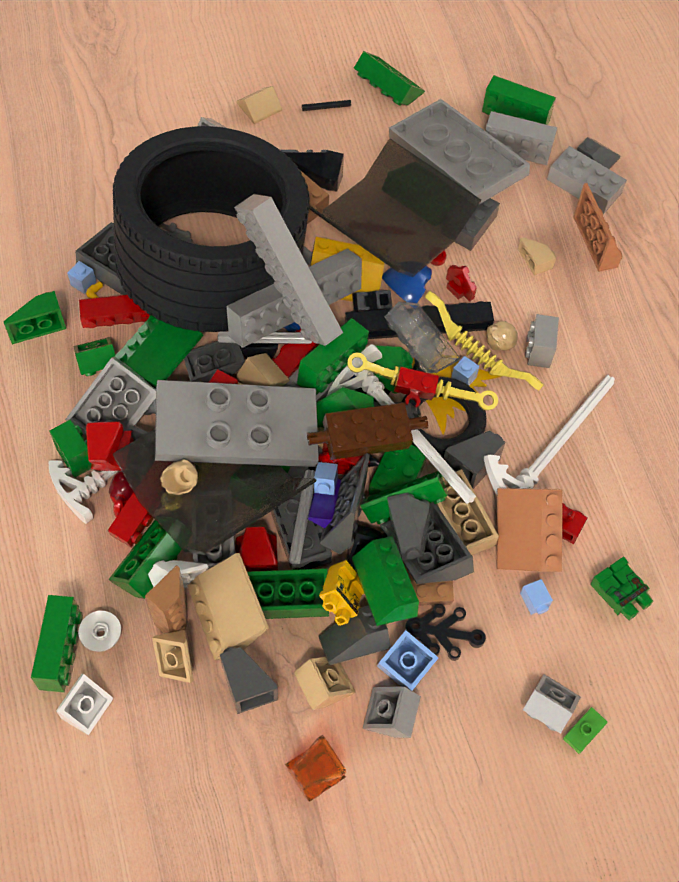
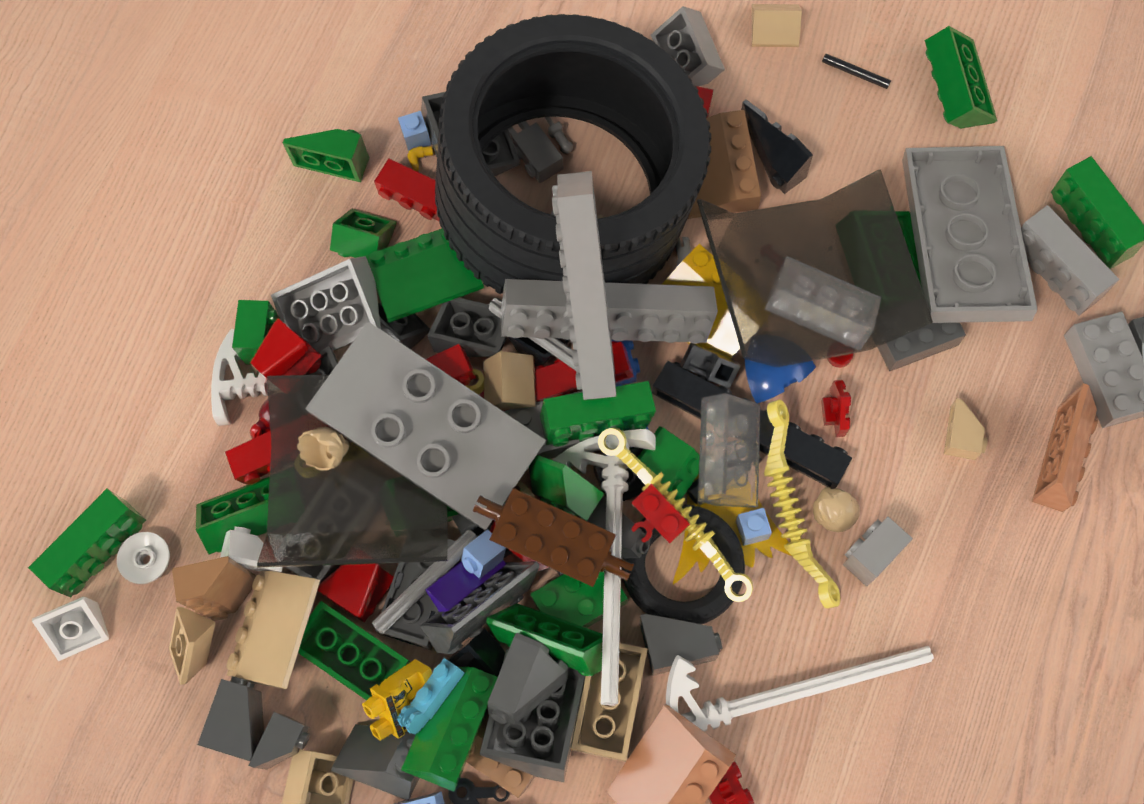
camera: 45 degrees right, 10 degrees up
(285, 667) = (279, 742): none -> dark grey slope
(359, 574) = (430, 697): none -> medium azure hinge
(413, 226) = (823, 303): none -> clear slope

